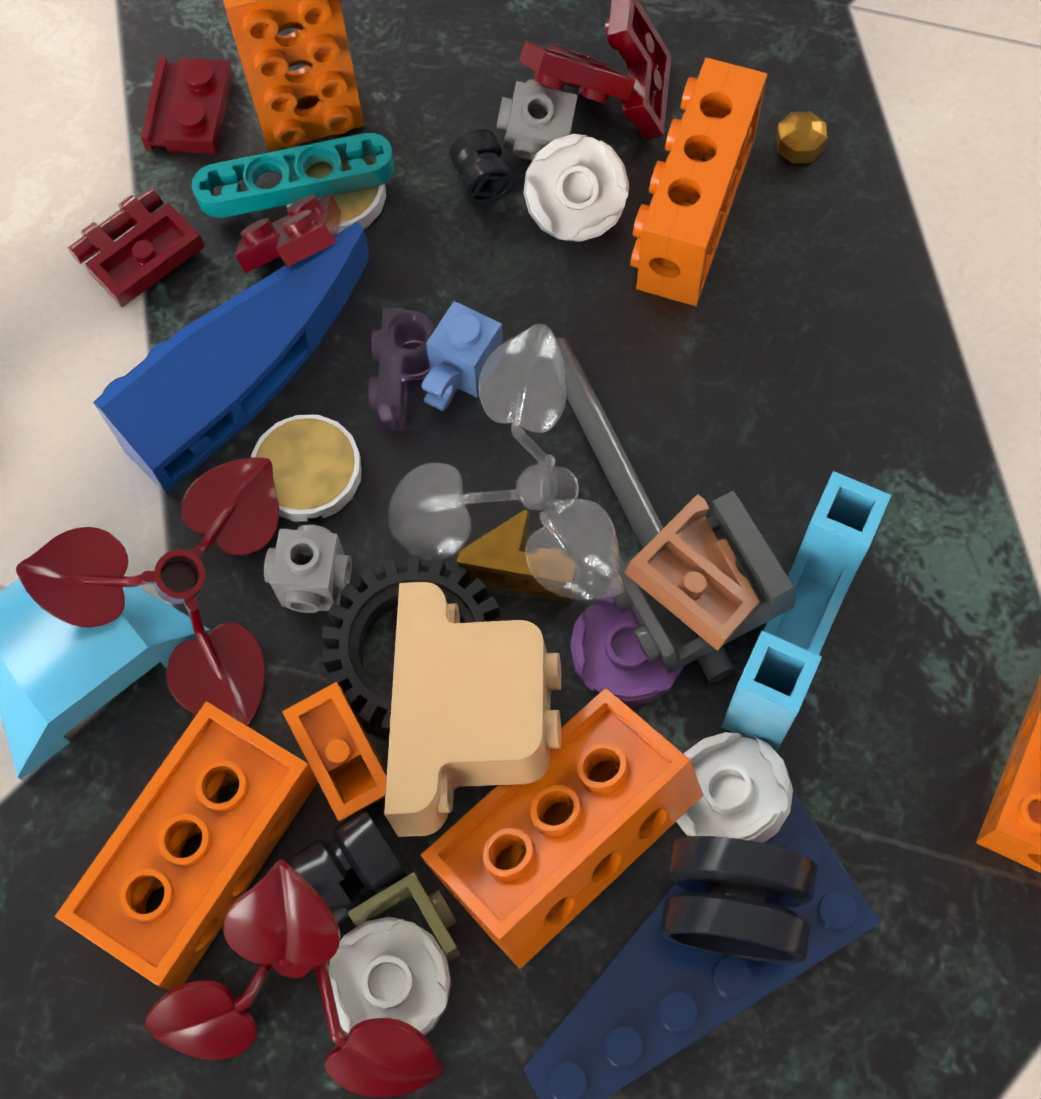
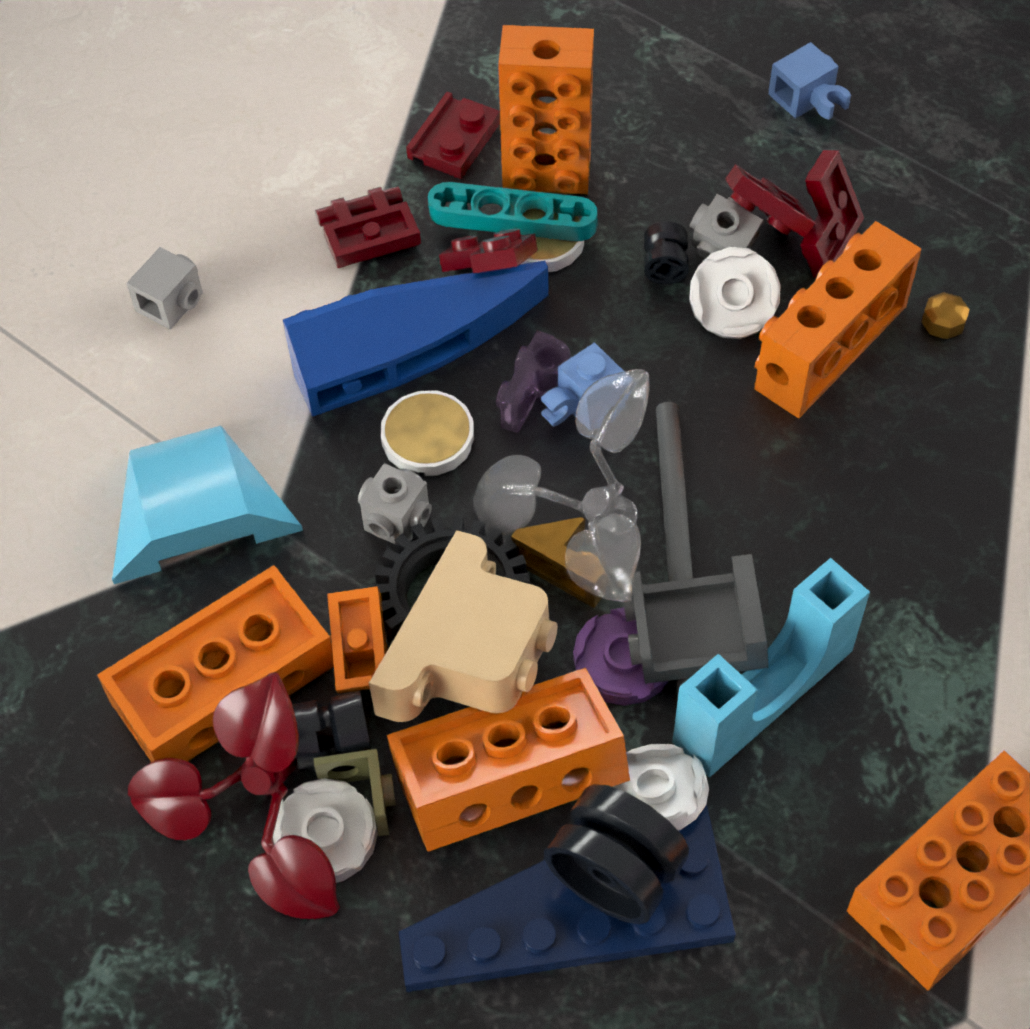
camera: 20 degrees right, 10 degrees down
(84, 568) = (222, 442): dark red plant -> none
(695, 576) = (693, 608): nougat wing -> none

